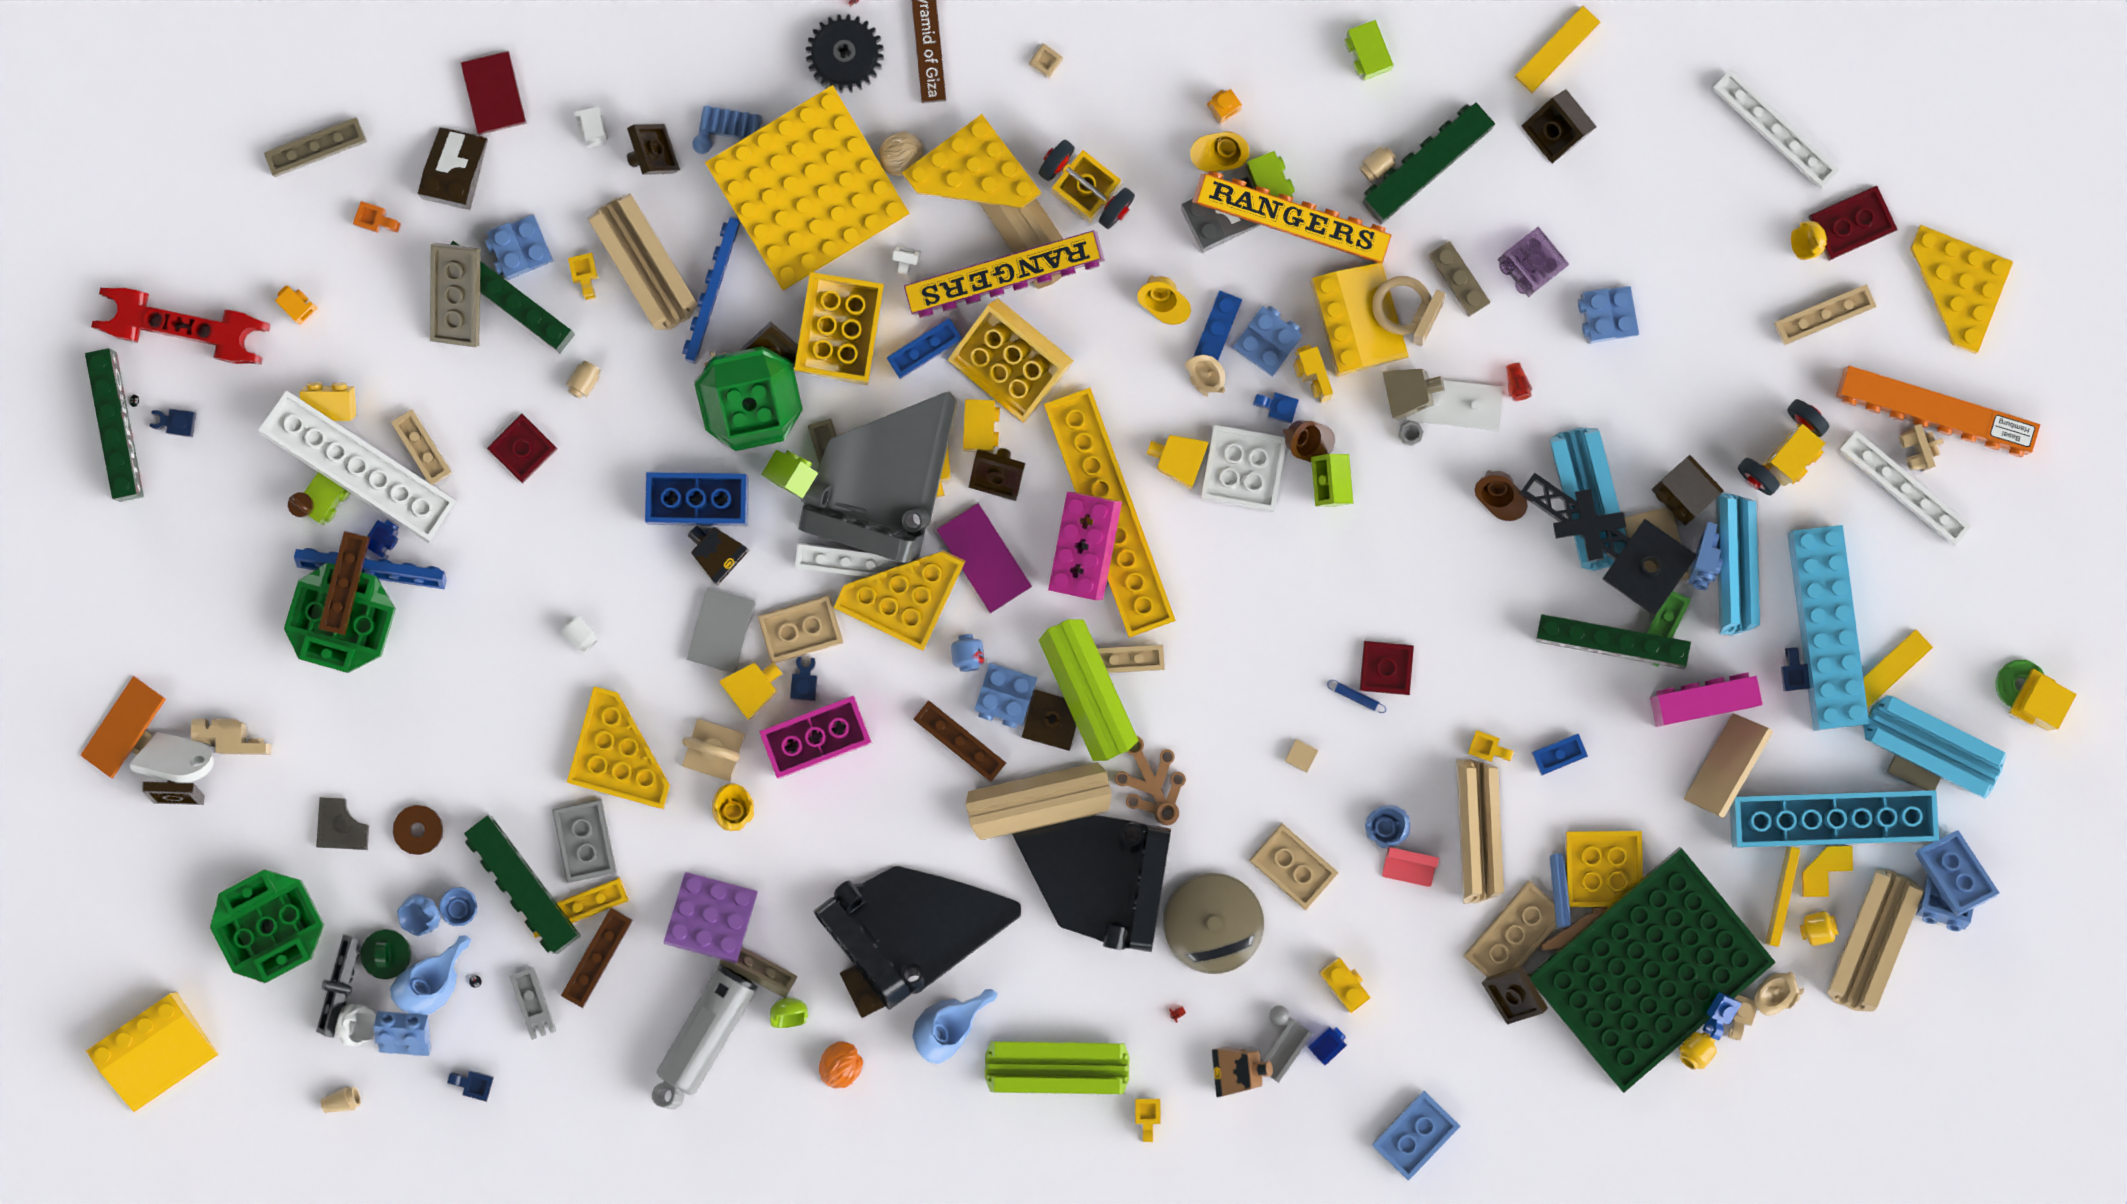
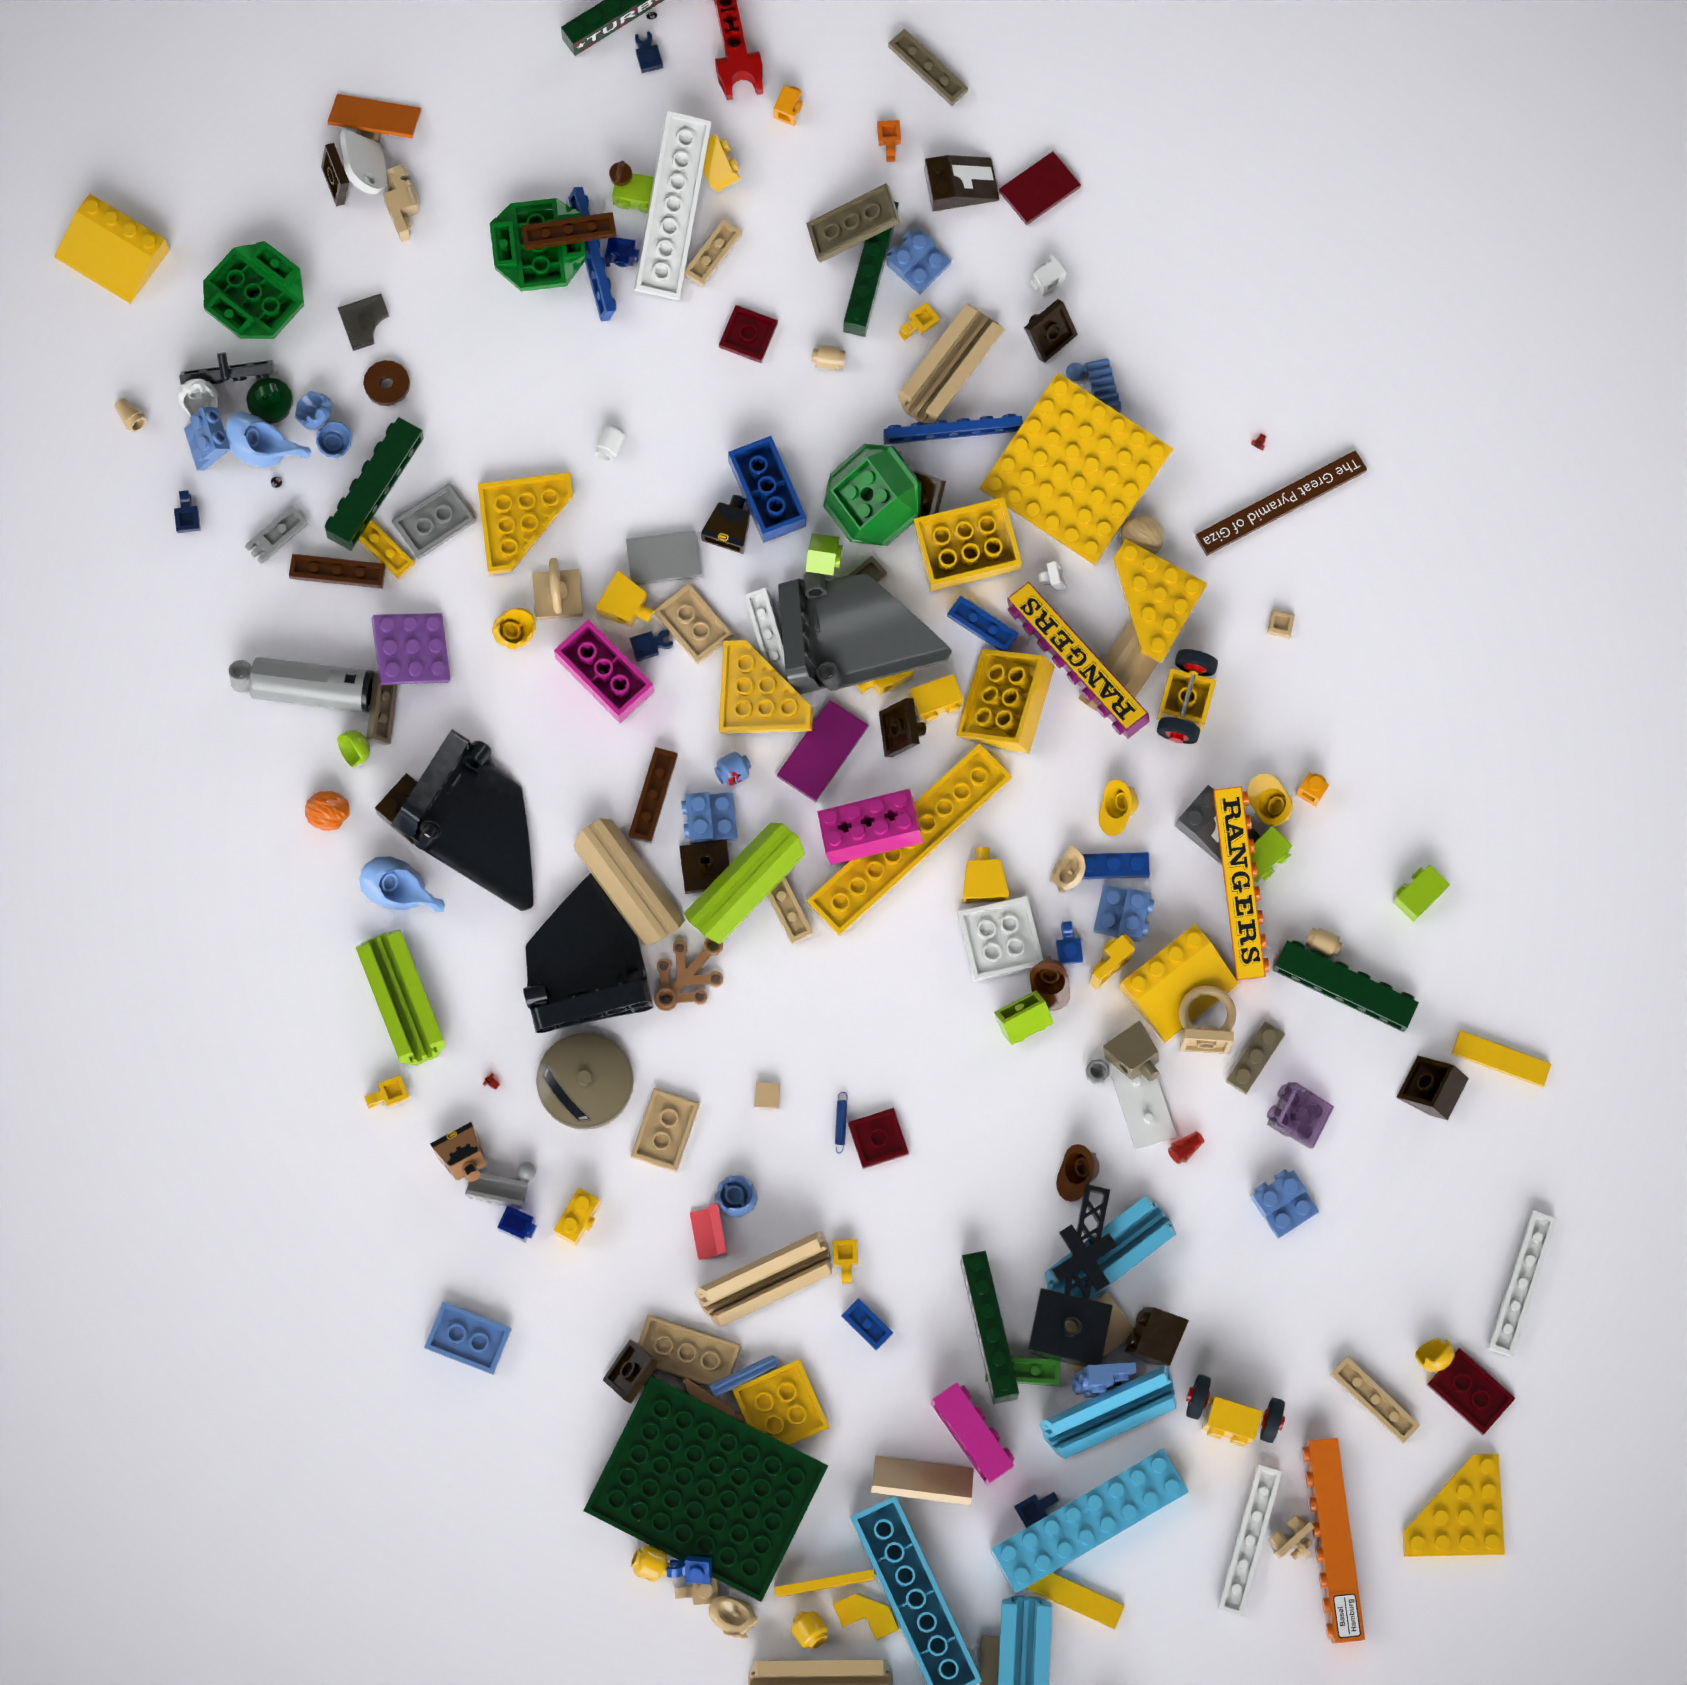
camera: 65 degrees right, 10 degrees down
(839, 36) = (1203, 469): black gear -> none

